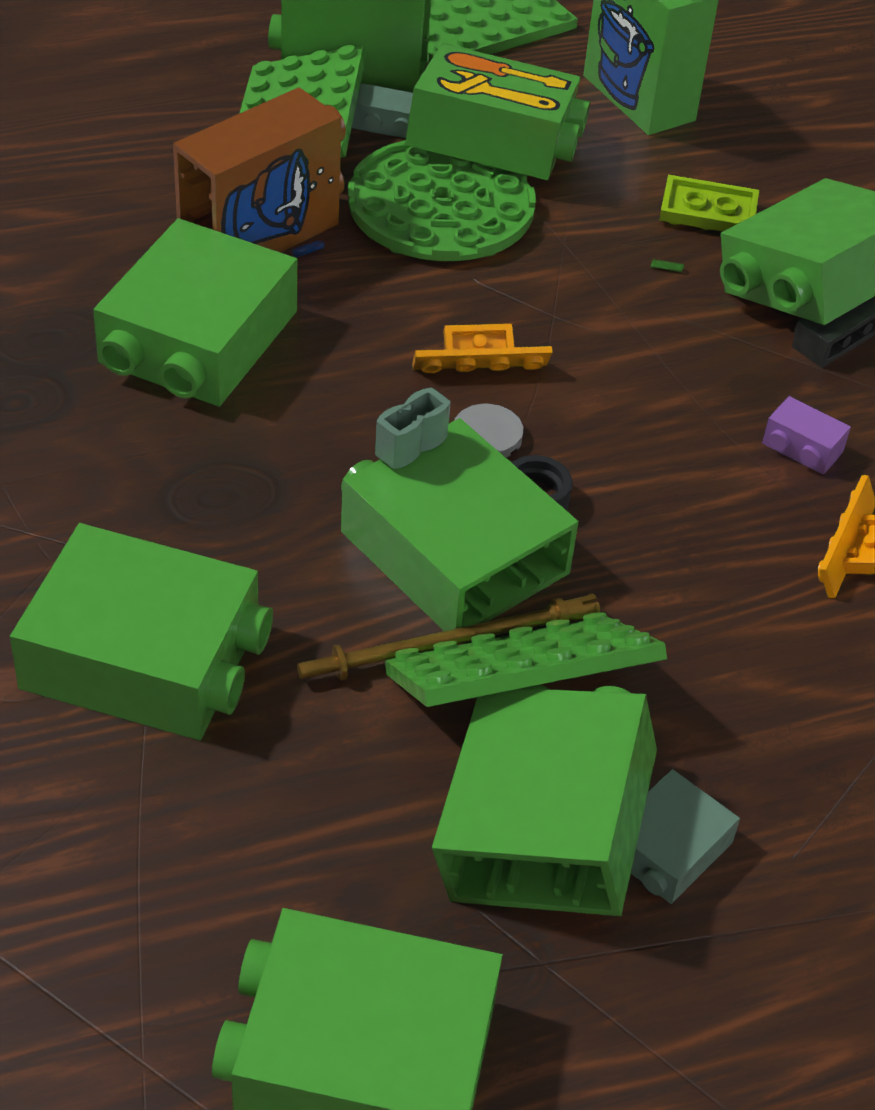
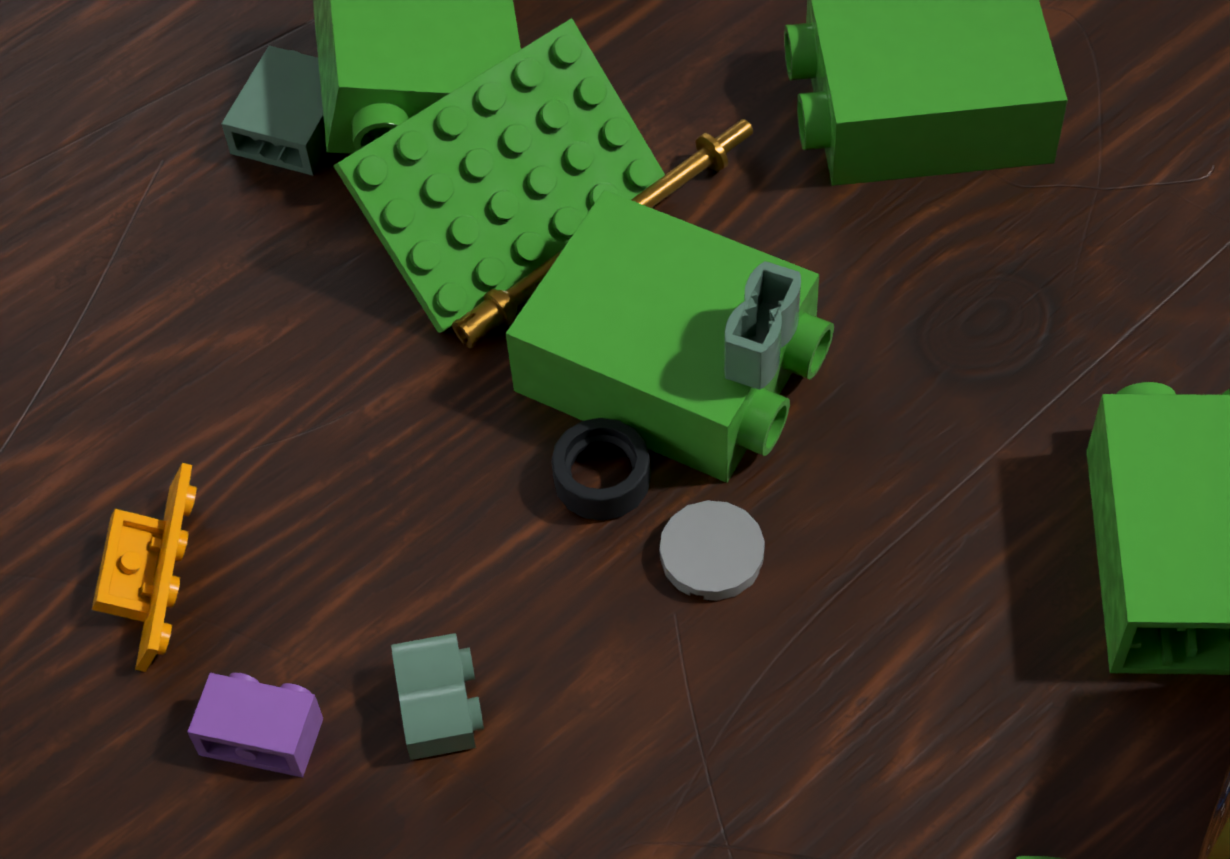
camera: 165 degrees right, 10 degrees up
(308, 250) = (1183, 816): blue leg -> none
(480, 347) = (790, 677): light orange bracket -> none
(692, 413) = (434, 696): none -> sand green brick

